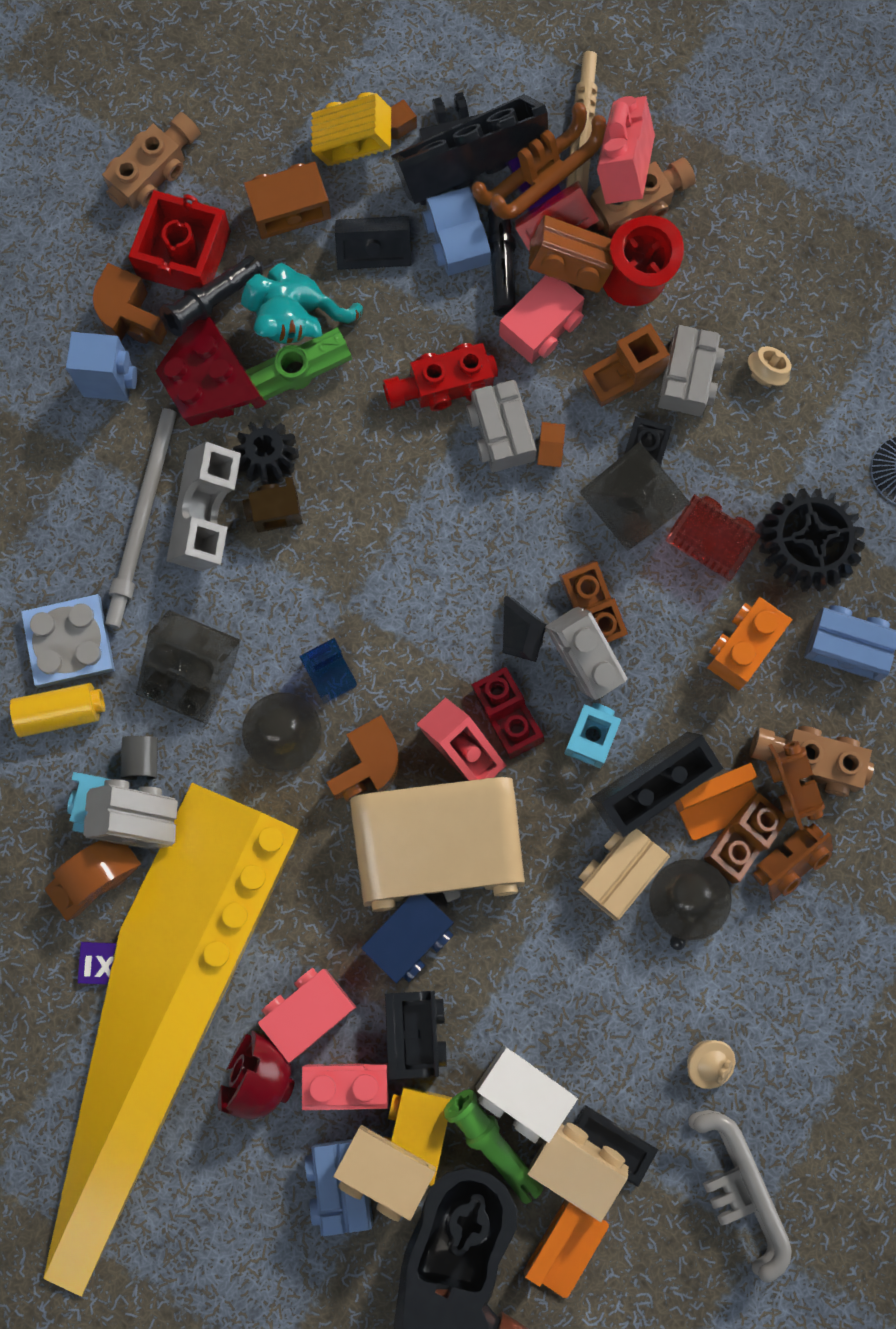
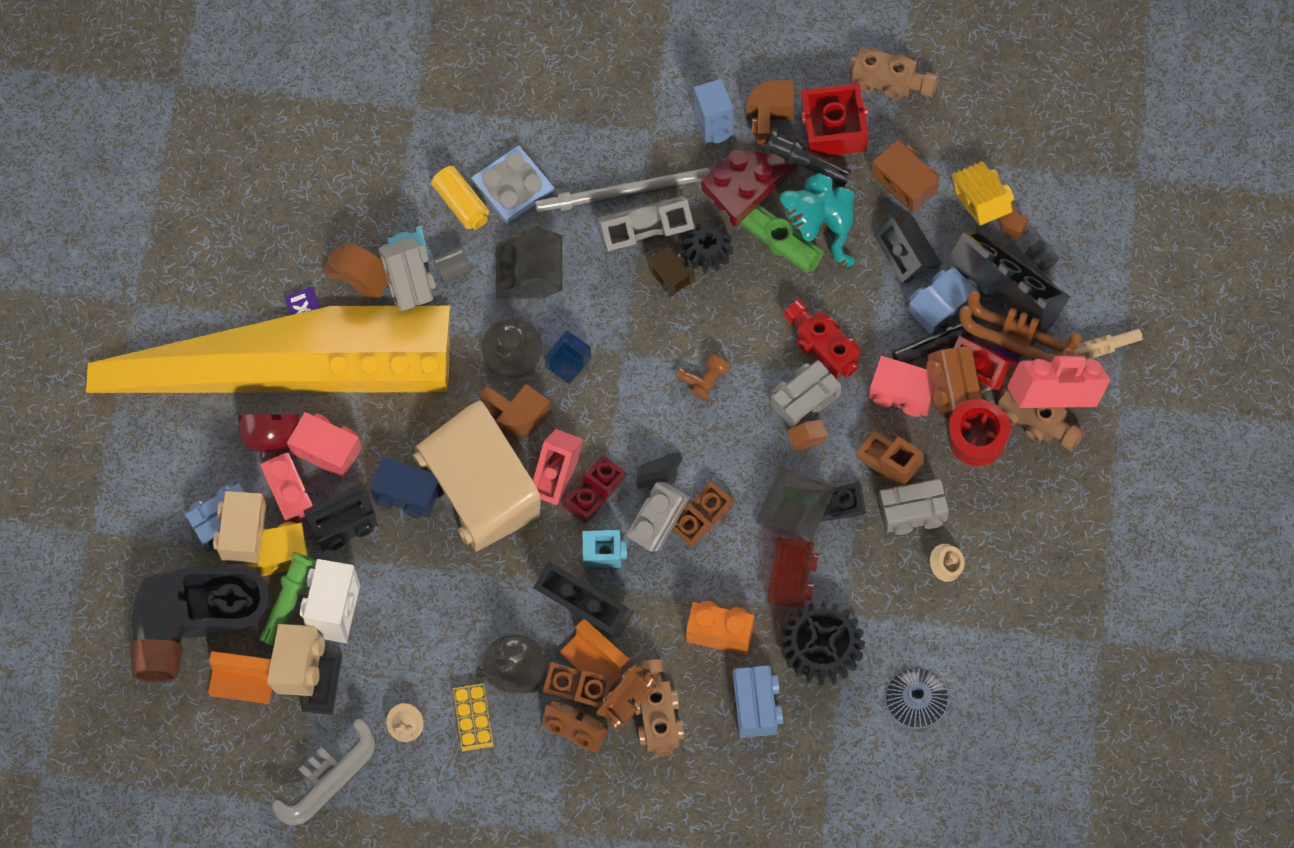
camera: 70 degrees right, 10 degrees down
(434, 536) = (701, 386): none -> dark orange piece
(622, 873) = (513, 609): tan brick -> none
(733, 977) = (473, 717): none -> yellow tile

